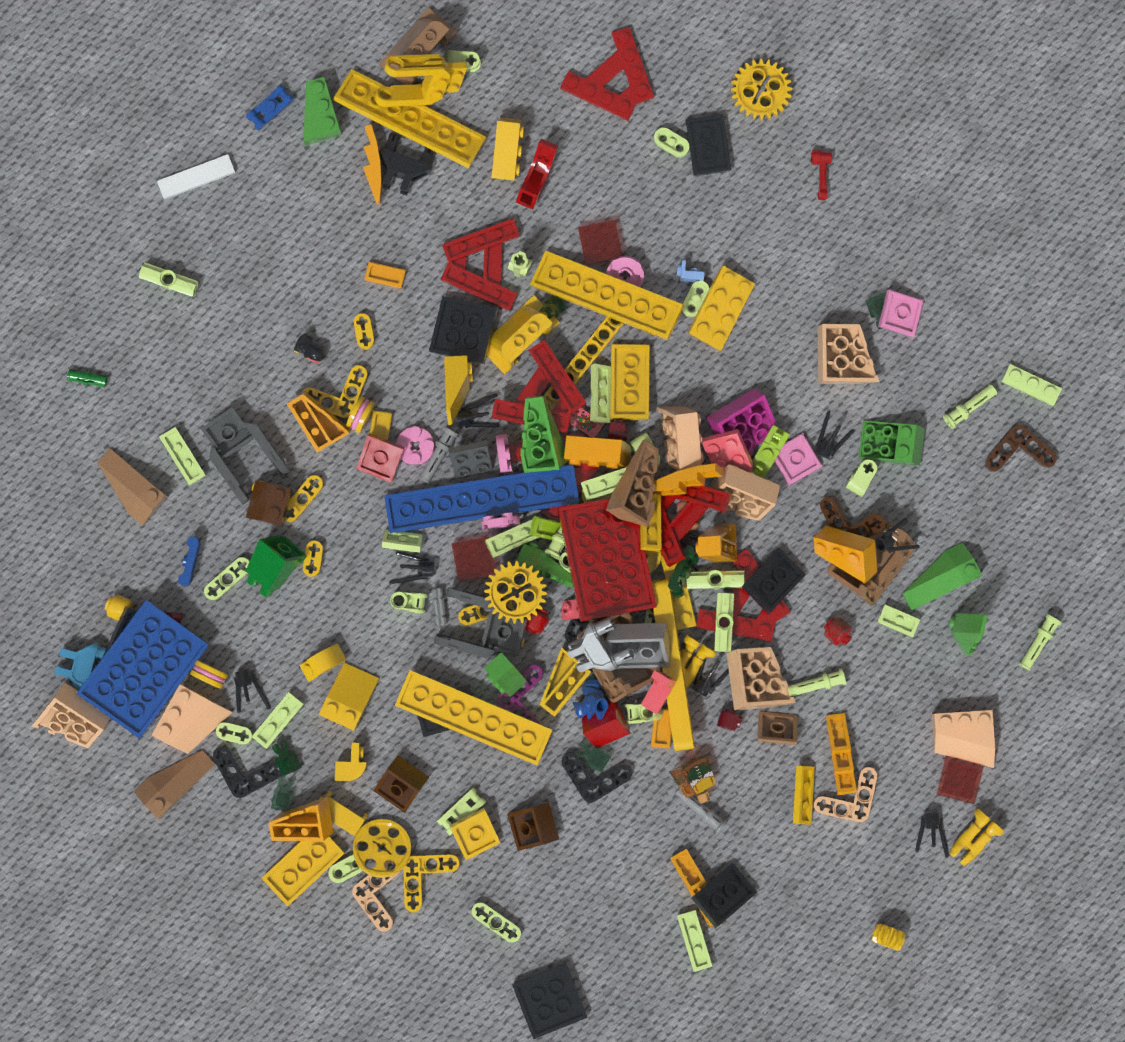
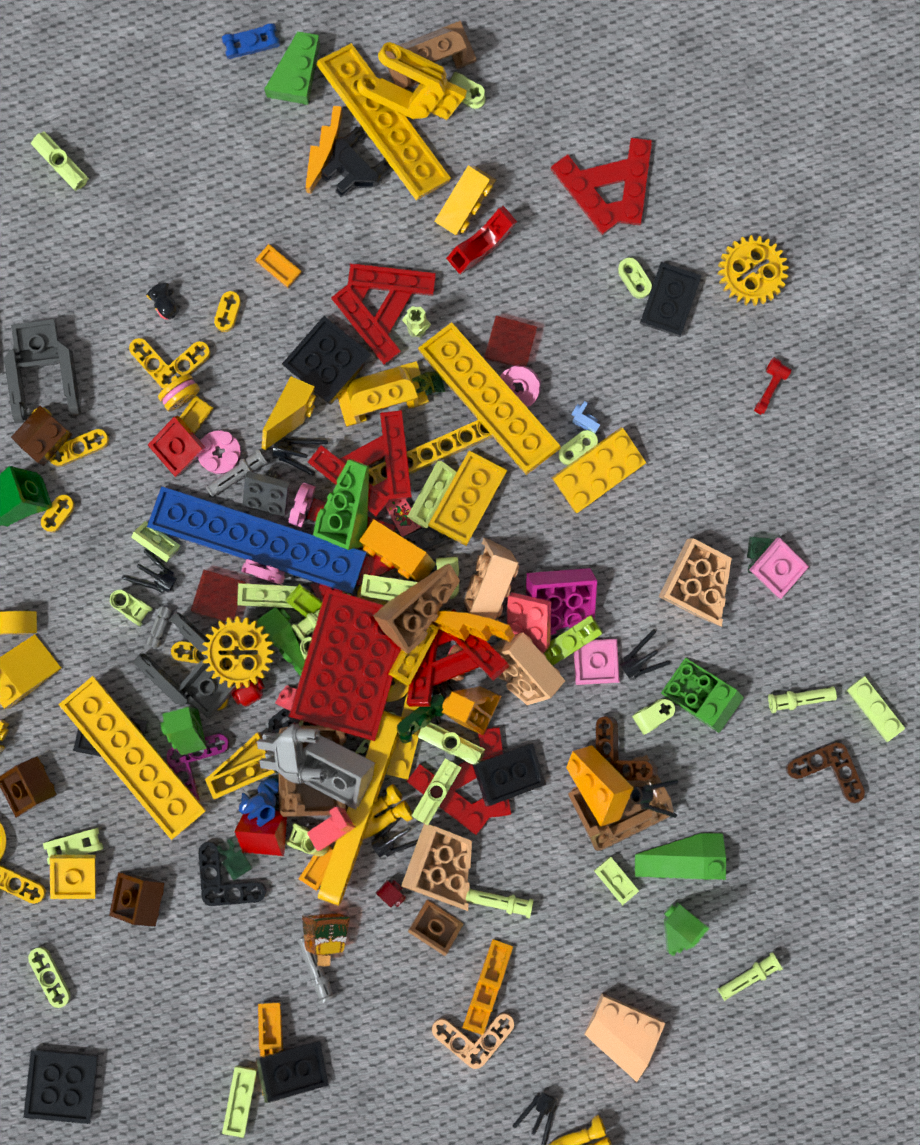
camera: 25 degrees right, 0 degrees up
(196, 176) = (141, 73): white tile -> none
(316, 421) = (130, 376): light orange wedge -> none
(617, 430) = (429, 541): dark red plate -> none
(803, 795) = (427, 1009): yellow plate -> none
(838, 631) = (548, 860): red head -> none
(959, 780) = (595, 1077): clear red plate -> none

